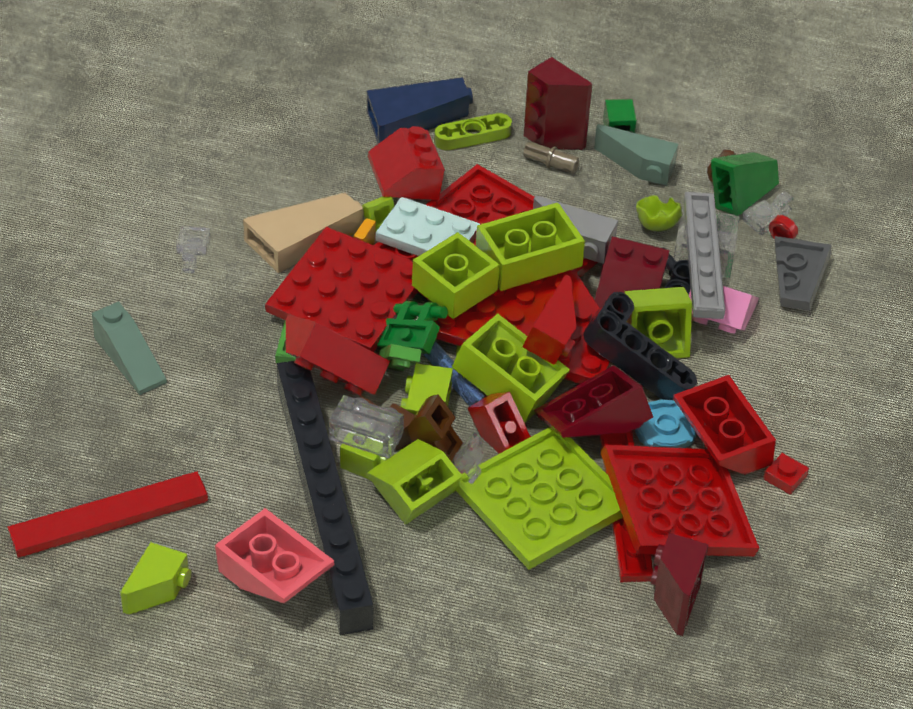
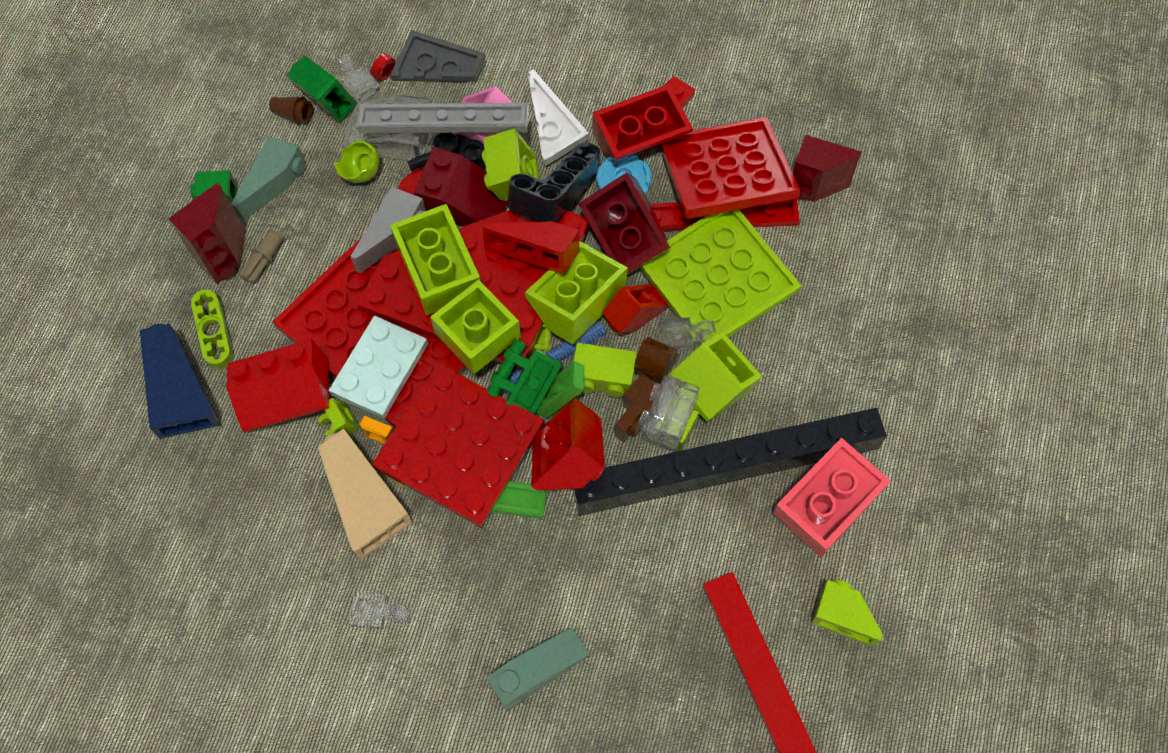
camera: 85 degrees left, 20 degrees up
(737, 360) = (556, 125): none -> white wing

